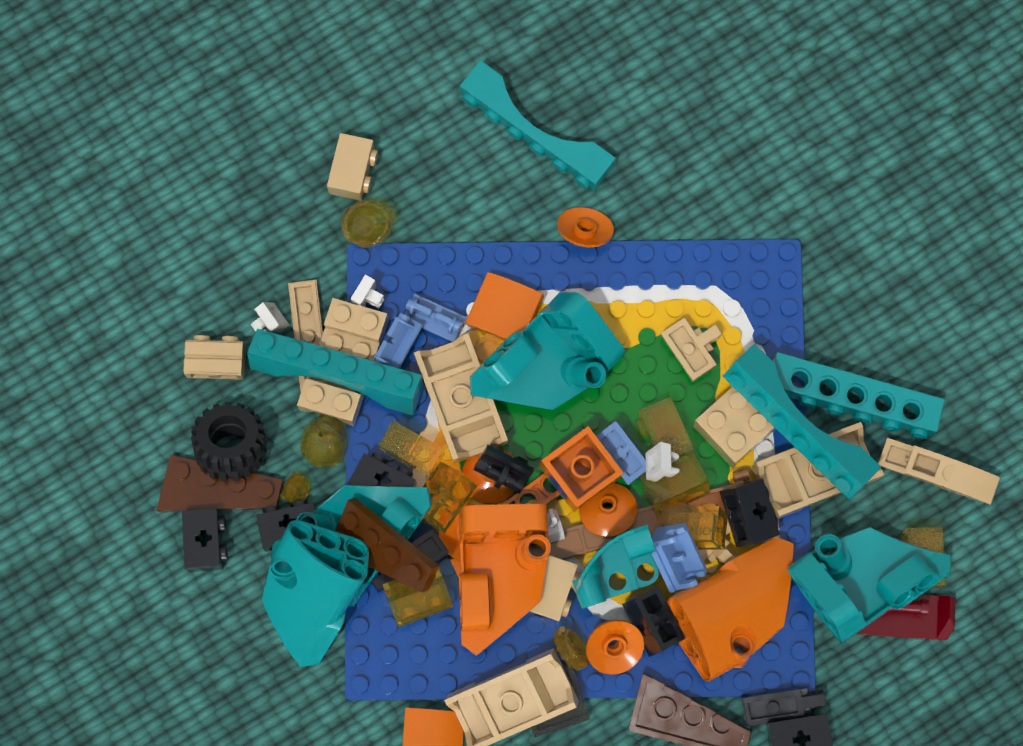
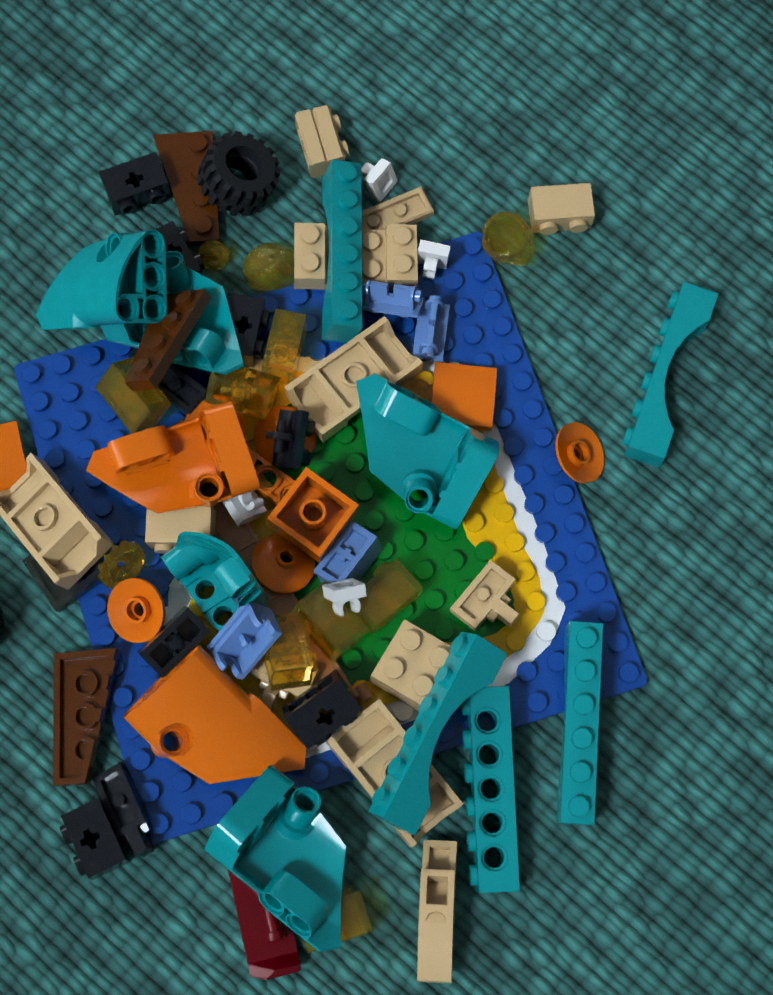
camera: 65 degrees right, 5 degrees down
(786, 290) = (581, 723): none -> teal arch

